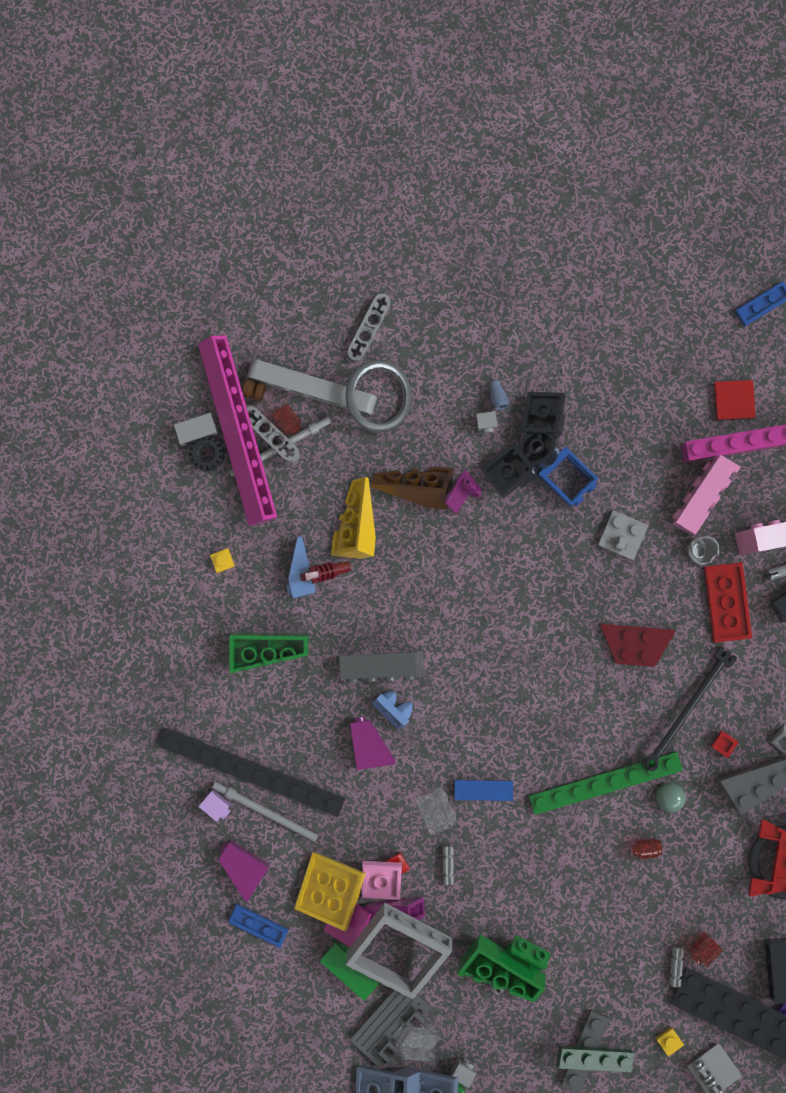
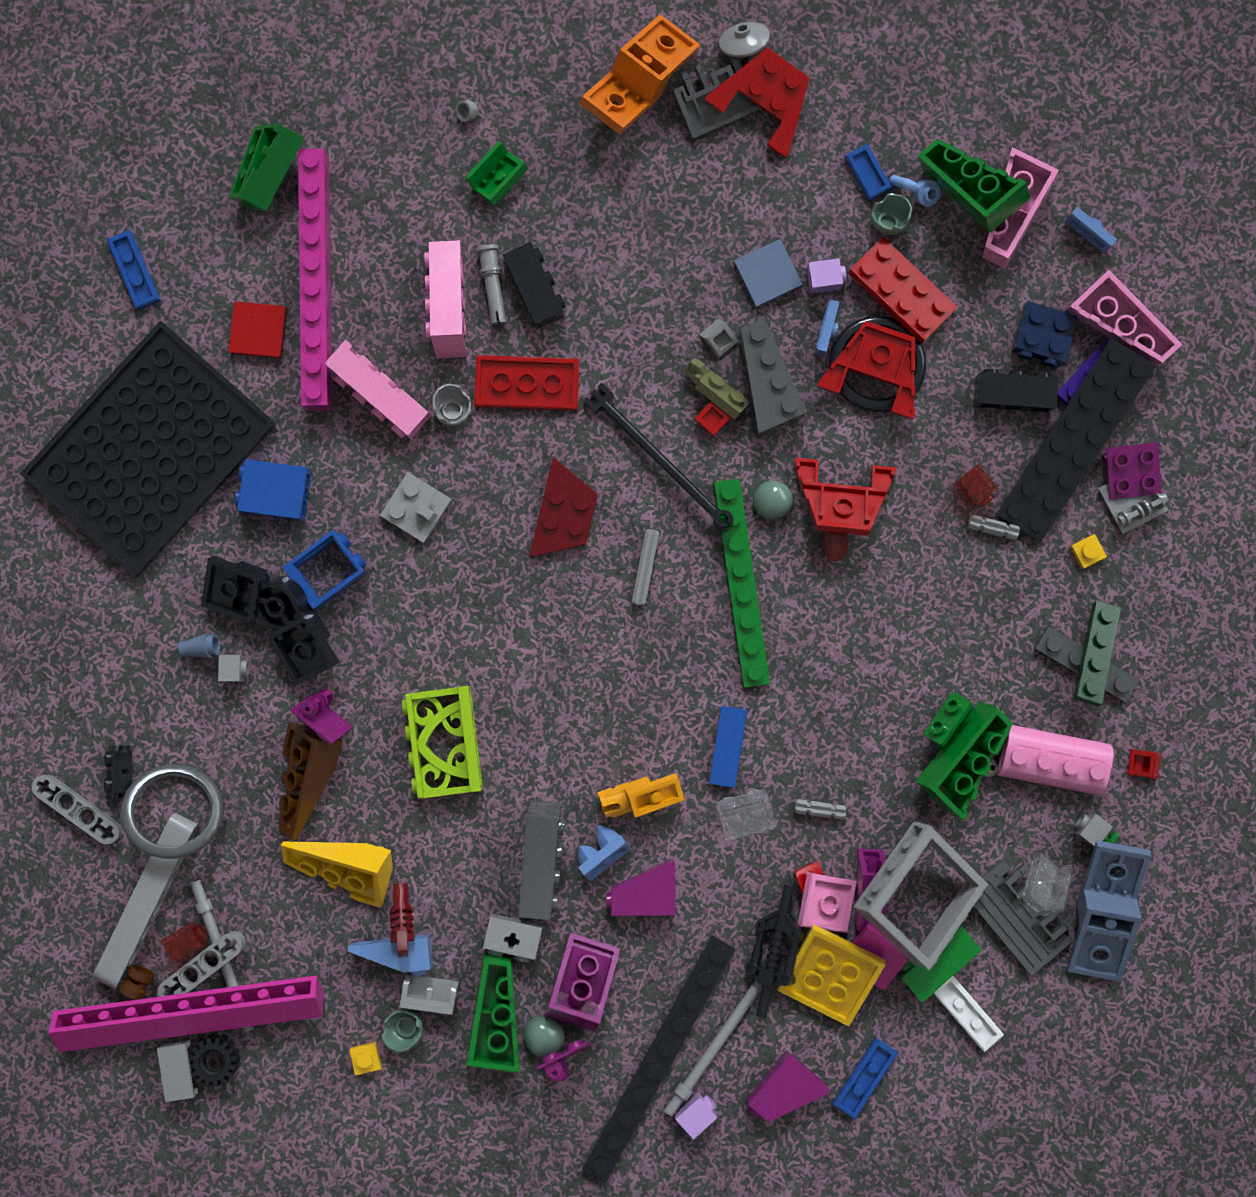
camera: 85 degrees left, 0 degrees up
(240, 697) = (555, 1064): none -> magenta hinge
(246, 584) = (402, 1030): none -> sand green hair
(255, 685) = (543, 1036): none -> sand green hair
(274, 599) = (429, 994): none -> light grey hinge
(298, 708) = (582, 982): none -> magenta slope
(315, 996) = (968, 1014): none -> white tile
(327, 664) = (502, 927): none -> light grey brick
(362, 848) = (768, 976): none -> black bar
(407, 350) = (116, 762): none -> black hinge
(439, 732) = (641, 796): none -> light orange plate
(481, 590) = (469, 768): none -> lime fence
(510, 1038) = (1056, 760): none -> bright pink container
(608, 710) = (645, 567): none -> light grey axle
(619, 430) = (273, 490): none -> blue brick
(635, 336) = (148, 449): none -> black plate
(674, 850) = (839, 506): none -> red wing
(737, 1068) = (1133, 470): none -> magenta hinge
(747, 743) = (716, 389): none -> olive hinge

